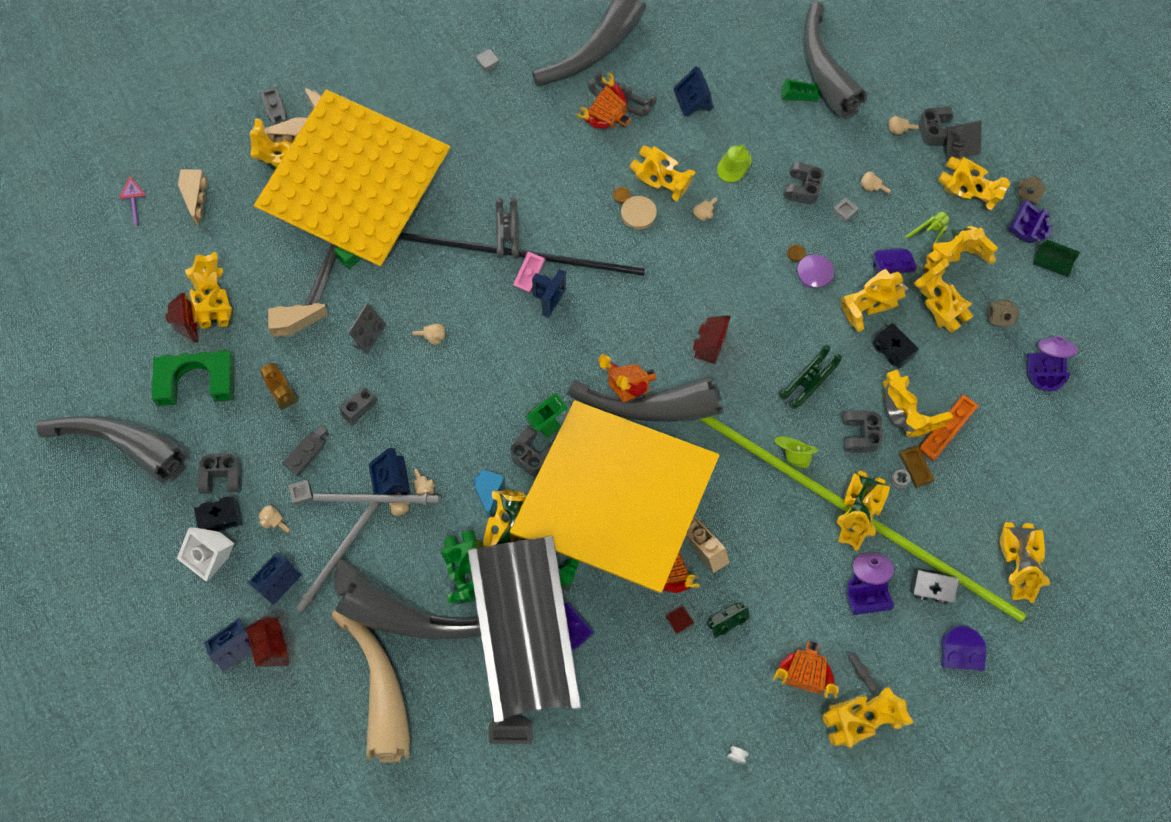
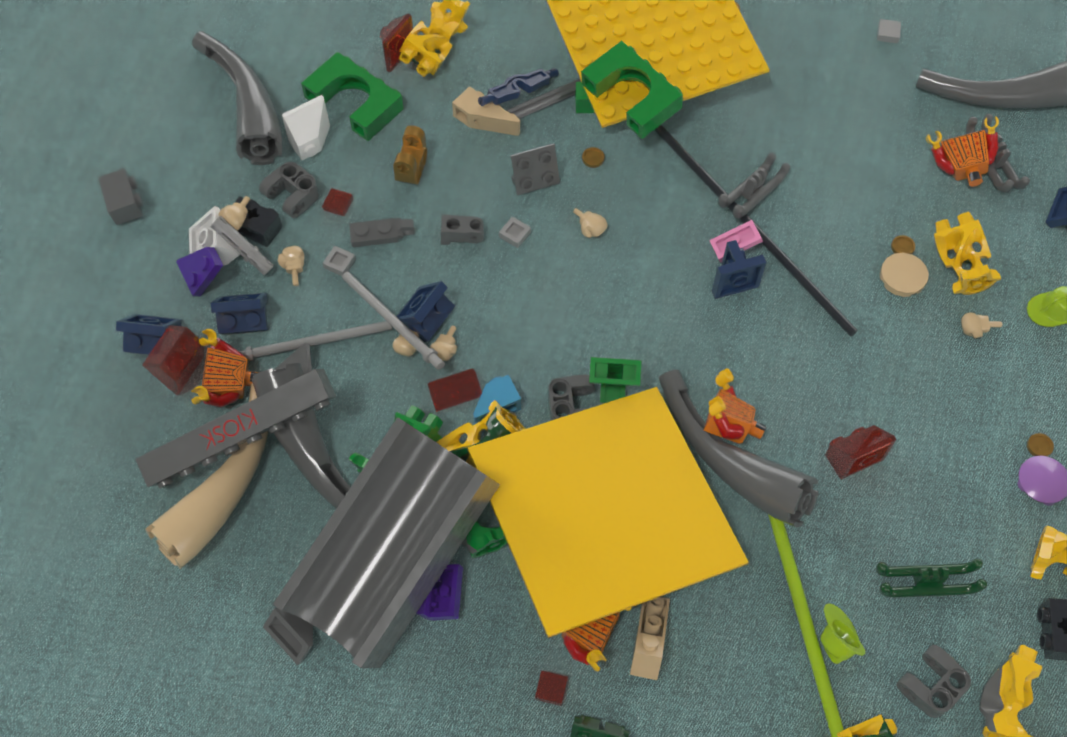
camera: 45 degrees right, 5 degrees down
(108, 578) = (120, 196): none -> dark grey brick
(188, 426) = (307, 127): none -> white slope
(207, 522) = (235, 213): none -> tan piece
(218, 576) = (200, 269): none -> dark purple wing
(226, 537) = (239, 243): none -> light grey pin
(258, 456) = (337, 202): none -> clear red tile
(297, 289) = (510, 88): none -> dark blue piece
(308, 624) = (223, 373): none -> torso
(359, 214) = (624, 64): none -> green arch
(359, 649) = (235, 428): none -> dark grey brick
(389, 289) = (593, 157): none -> pearl gold piece
(391, 378) = (514, 232): none -> light grey tile
(456, 506) = (454, 389): none -> clear red slope

